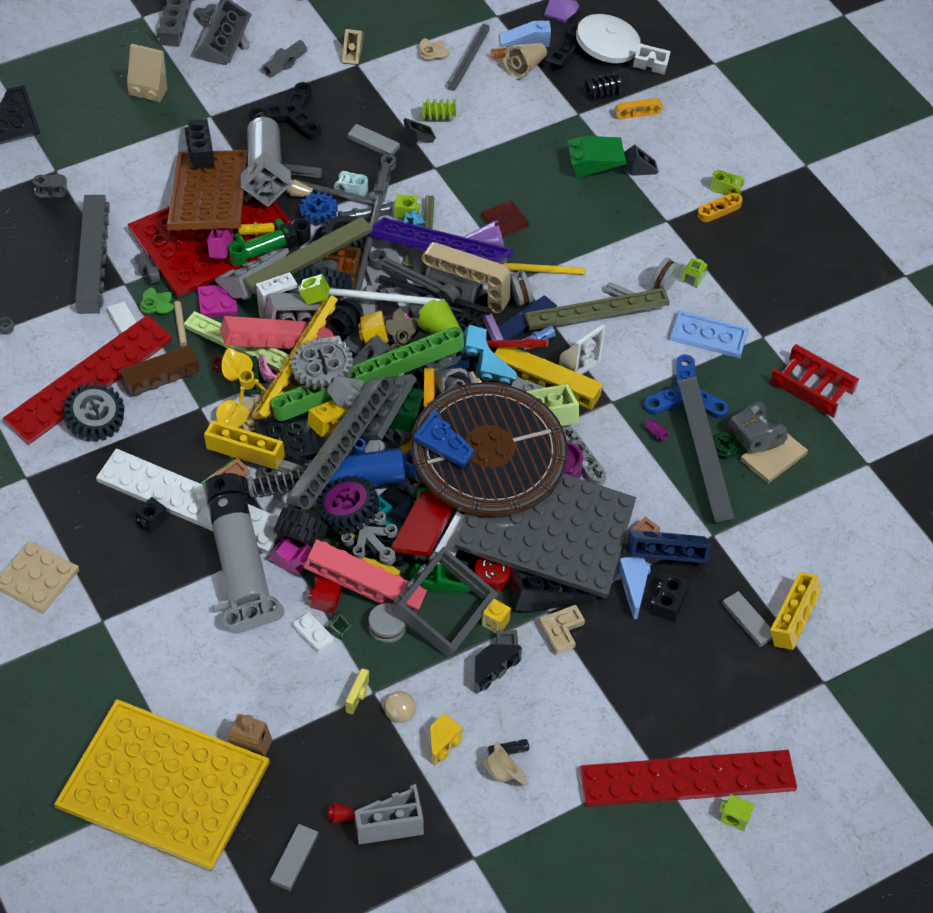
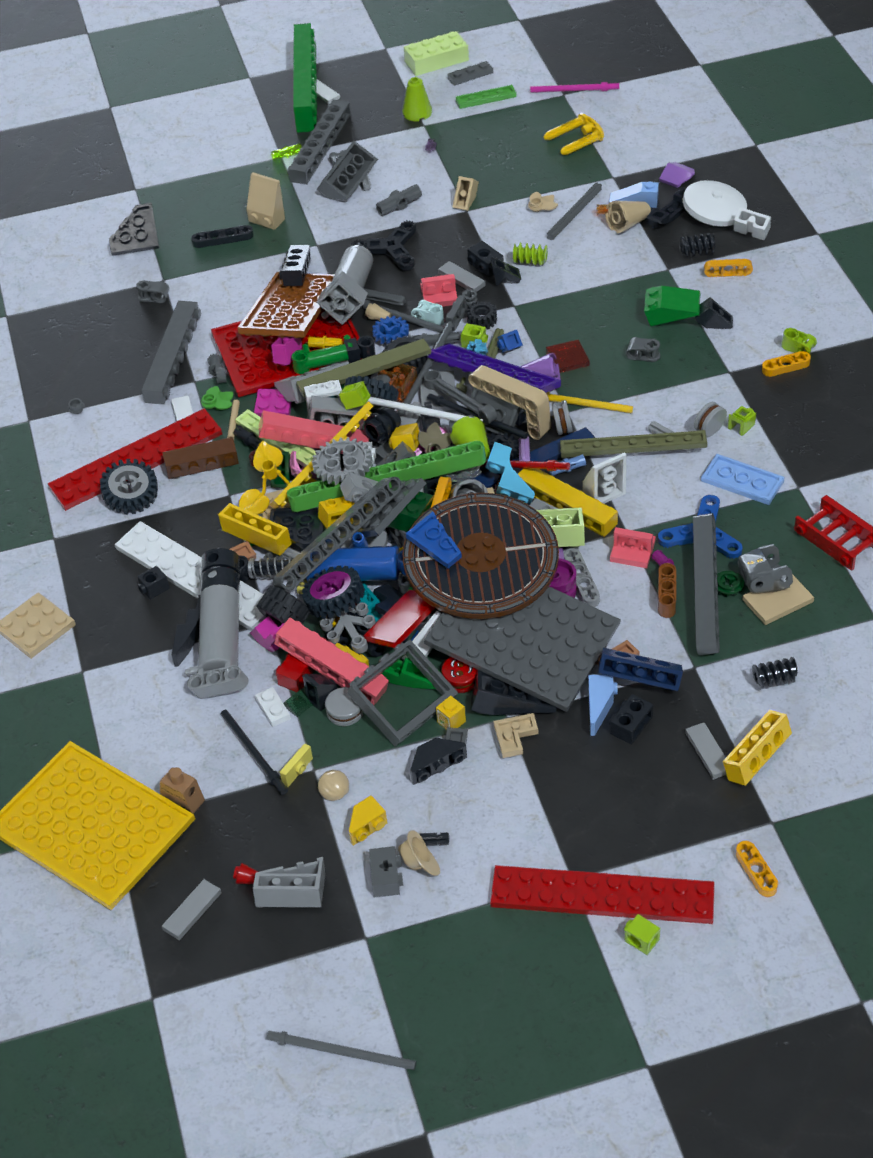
camera: 20 degrees right, 5 degrees down
(106, 115) = (204, 239): none -> black beam
(147, 10) = (286, 151): none -> clear neon green pin
(204, 343) = (248, 438): none -> black pin
(205, 564) = (186, 635): none -> black slope
(335, 706) = (272, 776): none -> black bar
(356, 158) = (439, 289): none -> coral bracket
(358, 609) = (317, 689): none -> black slope
(391, 117) = (480, 257): none -> black brick
(407, 175) = (483, 308): none -> black tyre
(443, 208) = (509, 341): none -> blue bracket
(476, 788) = (385, 872): none -> dark grey brick
(577, 205) = (642, 349): none -> dark grey piece
(624, 419) = (632, 547): none -> coral bracket
(669, 460) = (667, 590): none -> dark orange beam
(790, 532) = (775, 672): none -> black piece
(821, 721) = (756, 877): none -> light orange beam

